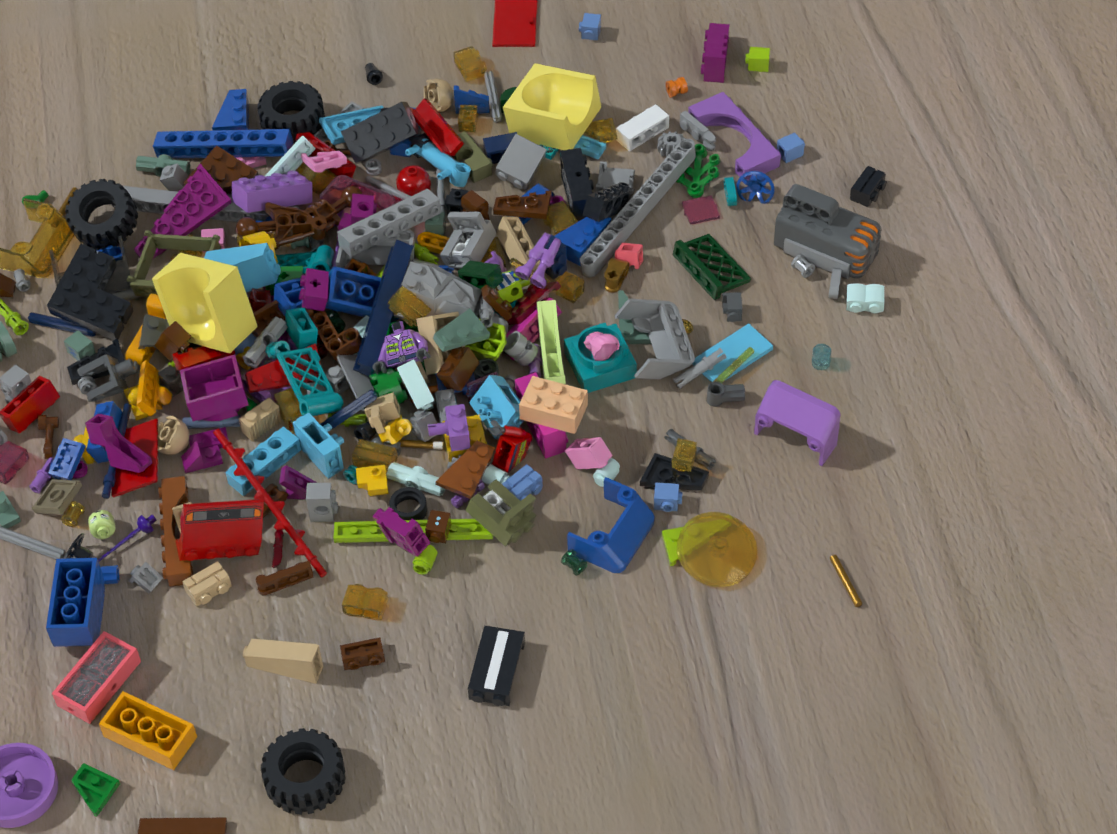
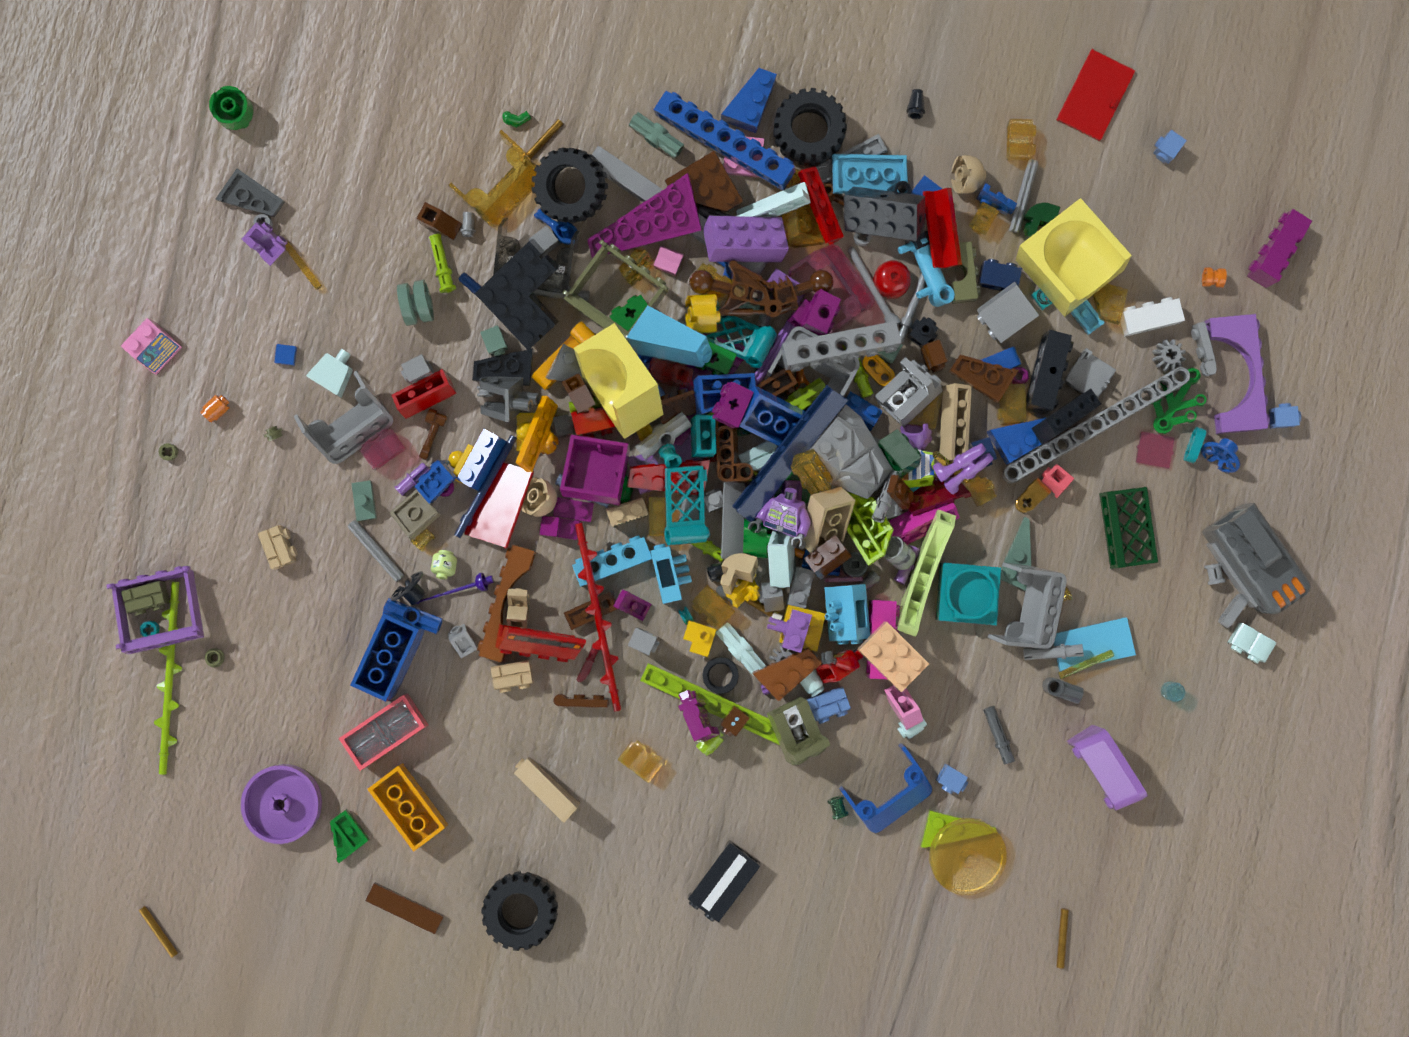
camera: 25 degrees right, 35 degrees up
(120, 451) = (482, 498): magenta arch -> none
(173, 177) = (660, 162): light grey brick -> none
(324, 160) = (811, 226): bright pink wing -> none
(351, 409) = (705, 552): dark blue axle -> none
(362, 654) = (616, 813): reddish brown bracket -> none
(461, 332) = (847, 528): sand green wing -> none
(601, 345) = (971, 599): bright pink hair -> none
(661, 471) = (970, 755): black wing -> none
(684, 455) = (987, 743): clear yellow brick -> none
(732, 306) = (1121, 592): dark grey brick -> none
(758, 59) = (1317, 278): lime brick -> none
(868, 186) = (1332, 505): black brick -> none

